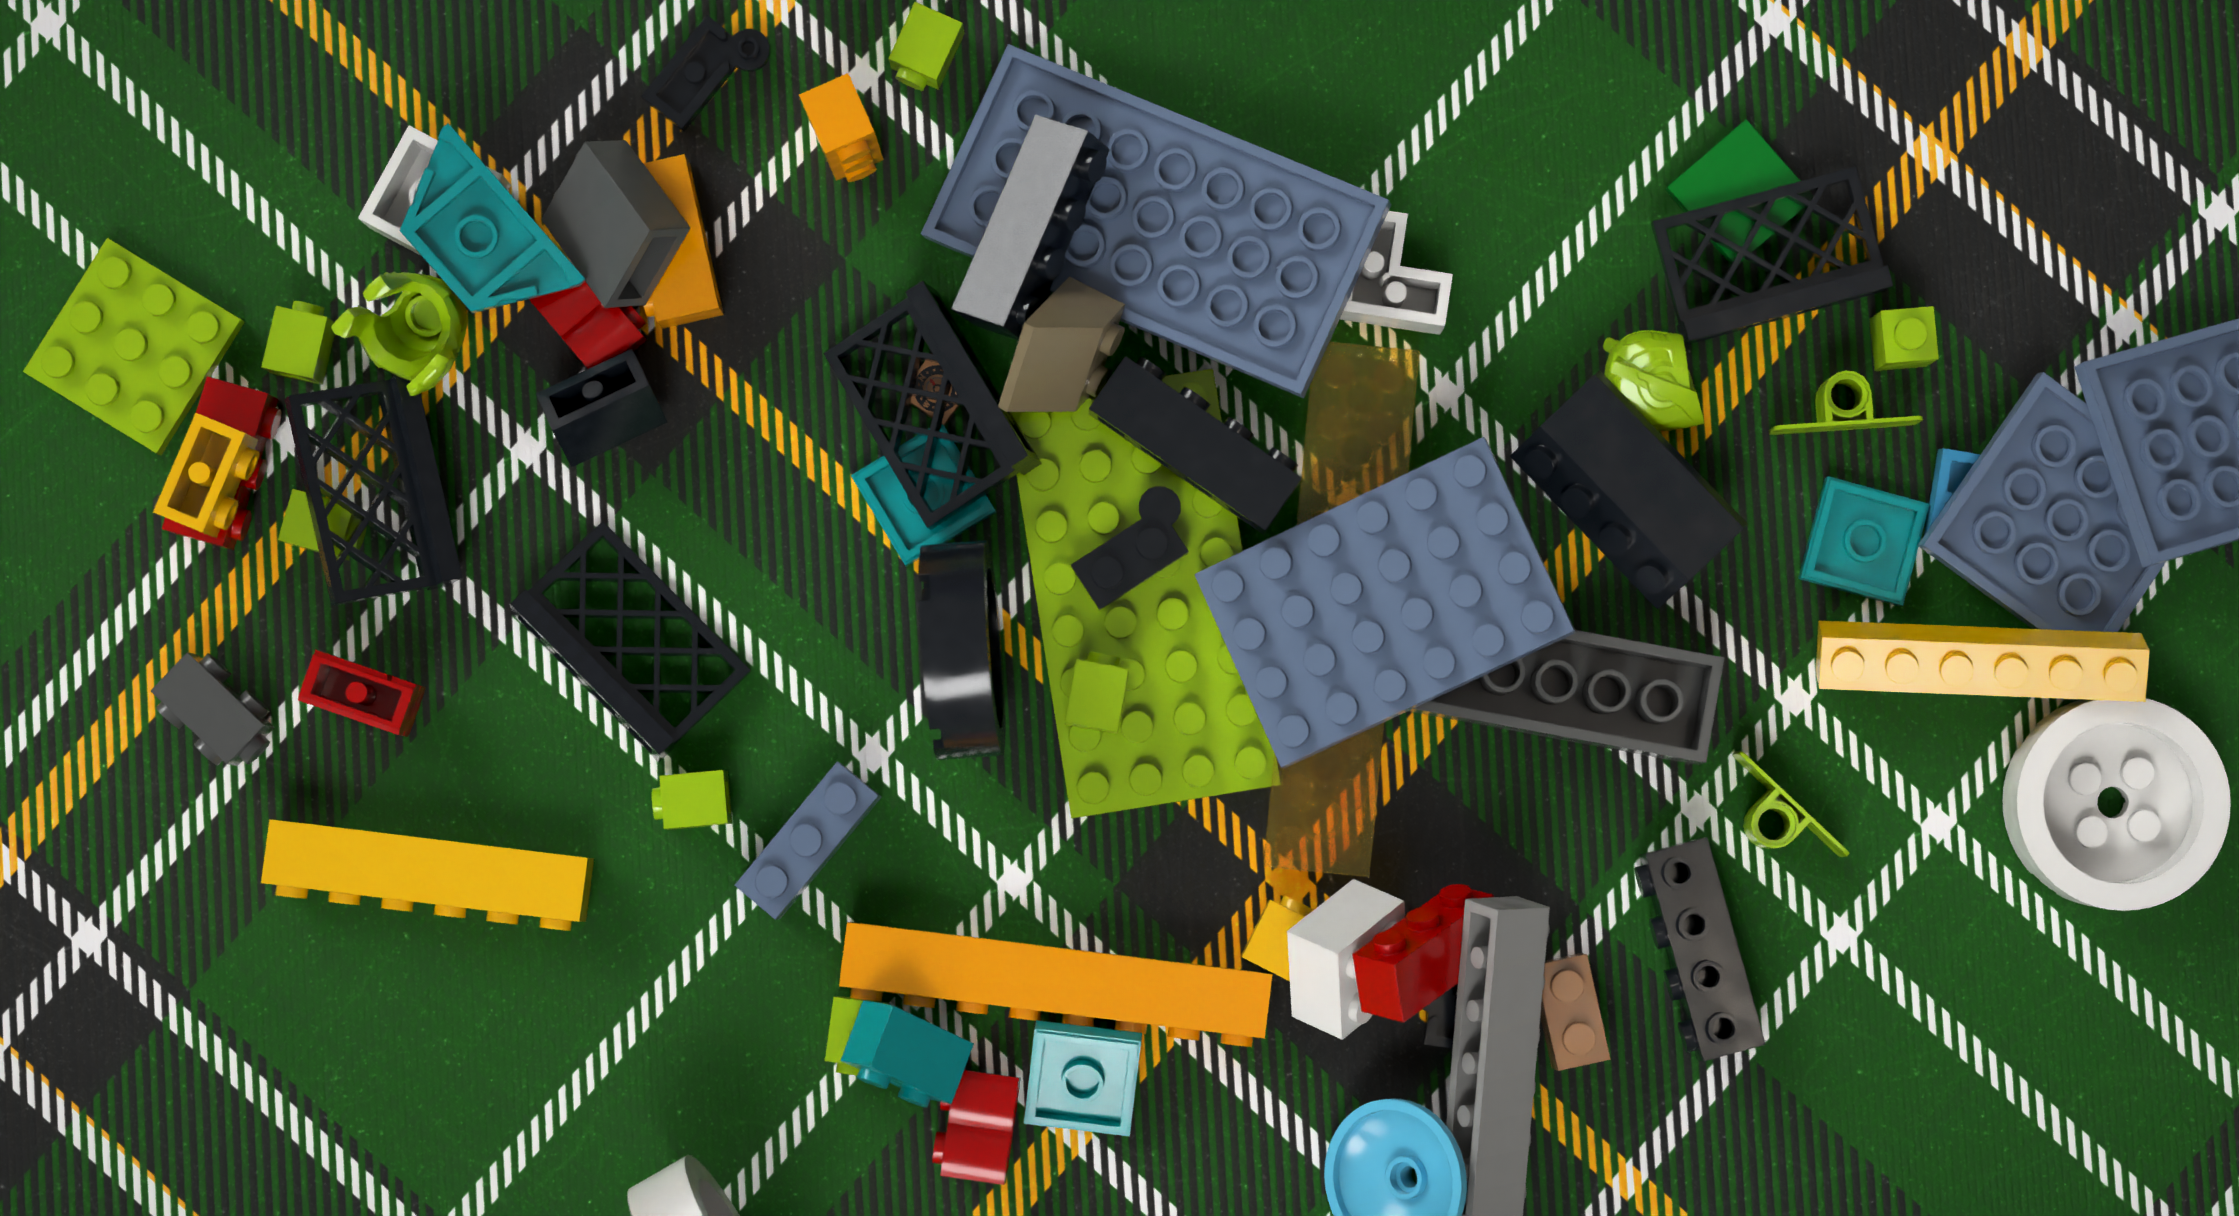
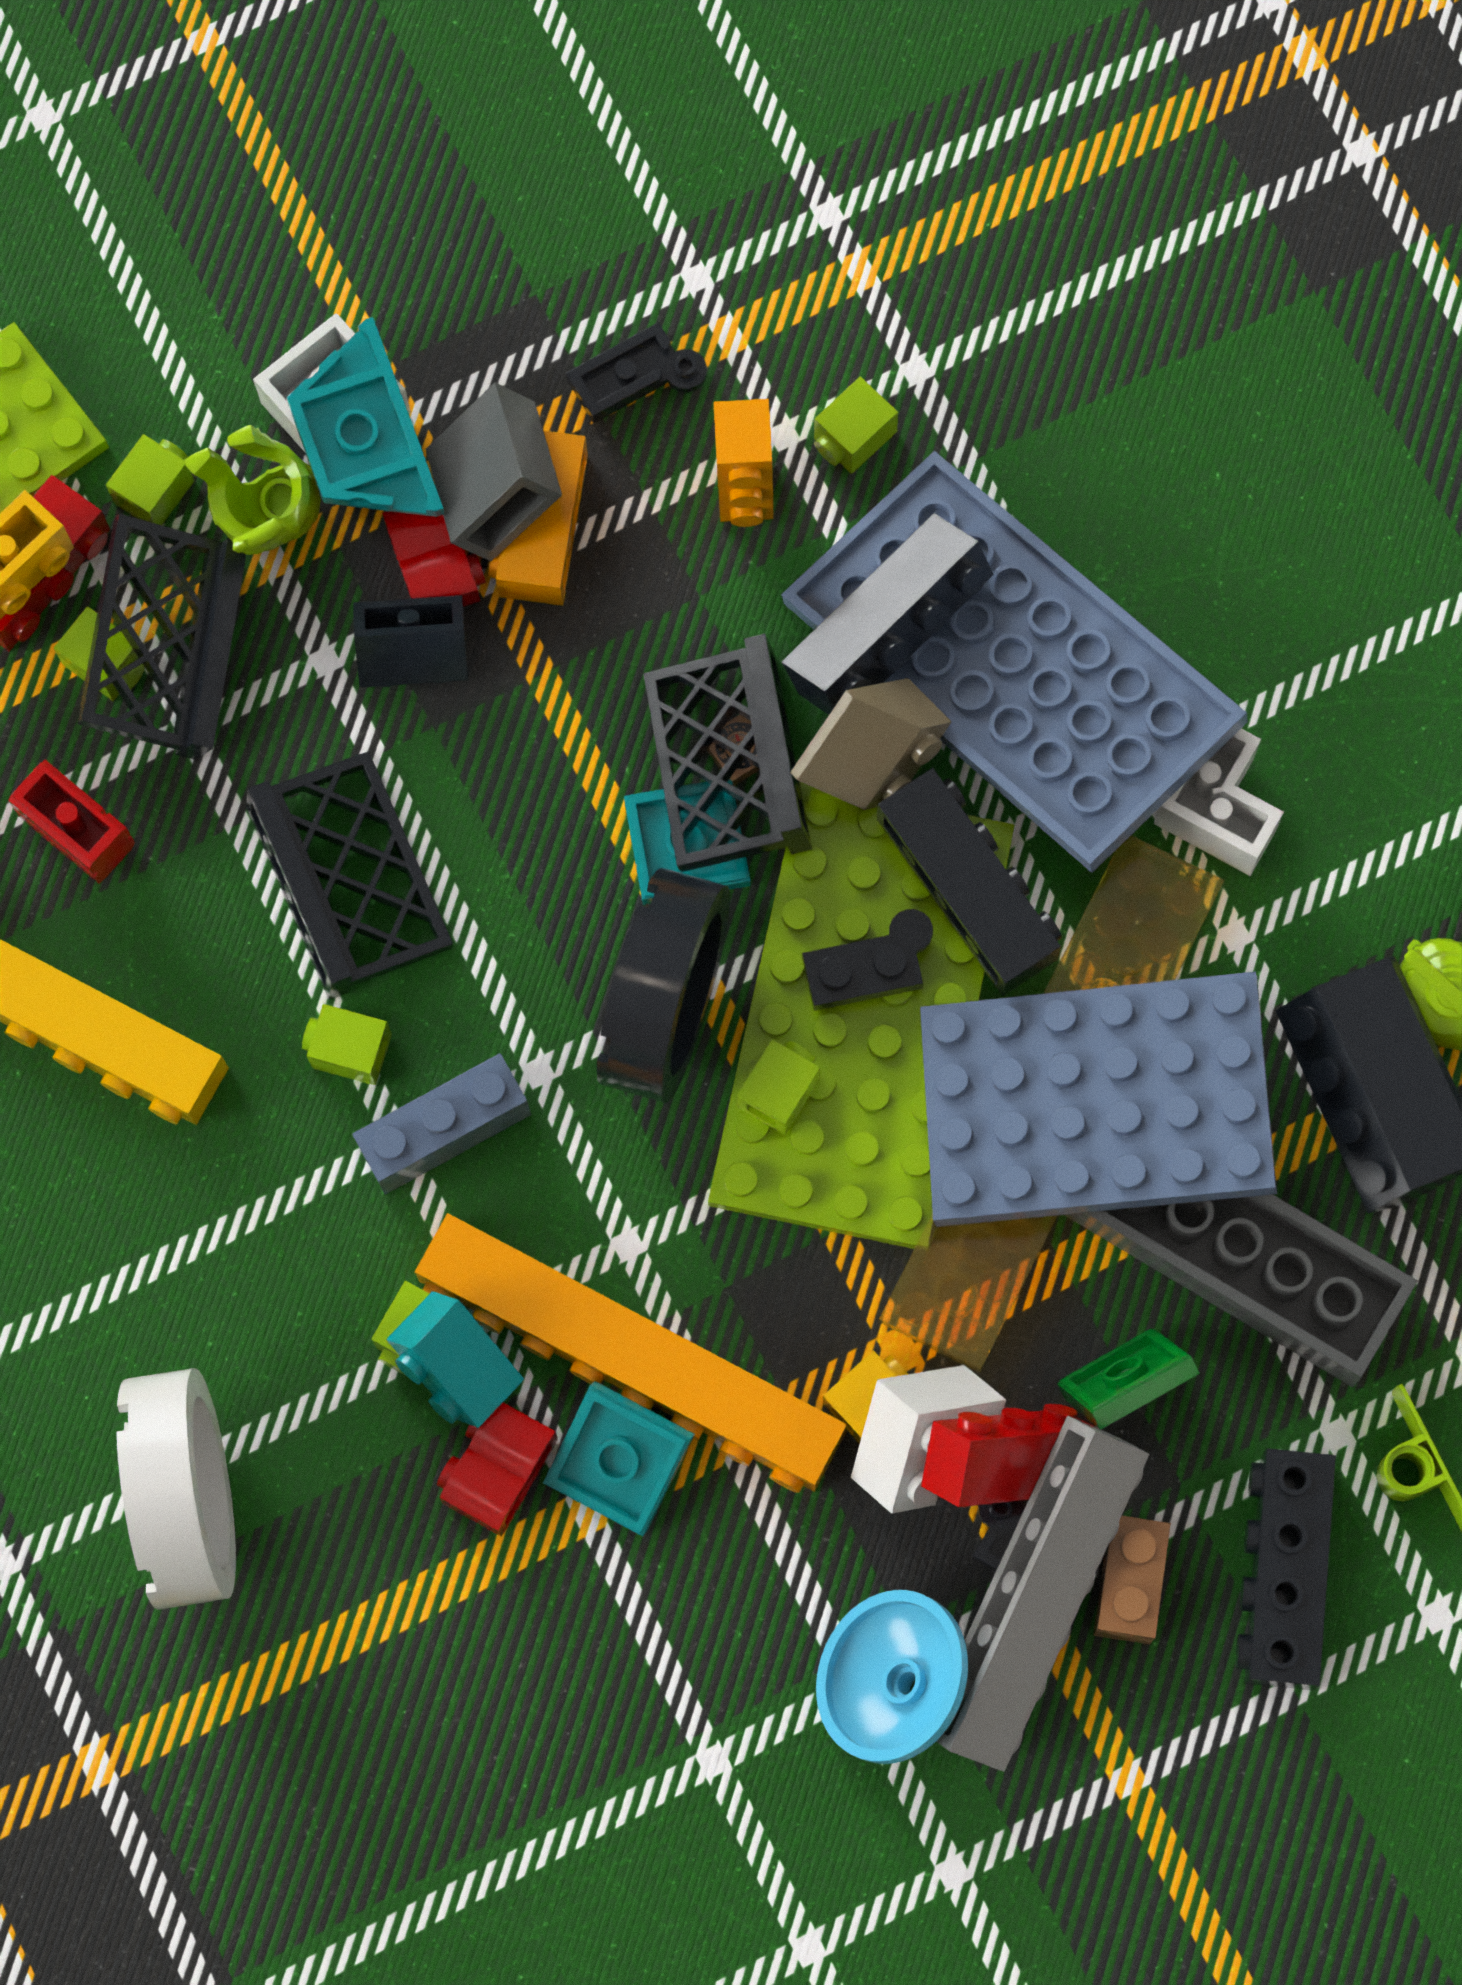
camera: 25 degrees right, 10 degrees down
(1502, 839) = (1127, 1378): none -> green tile

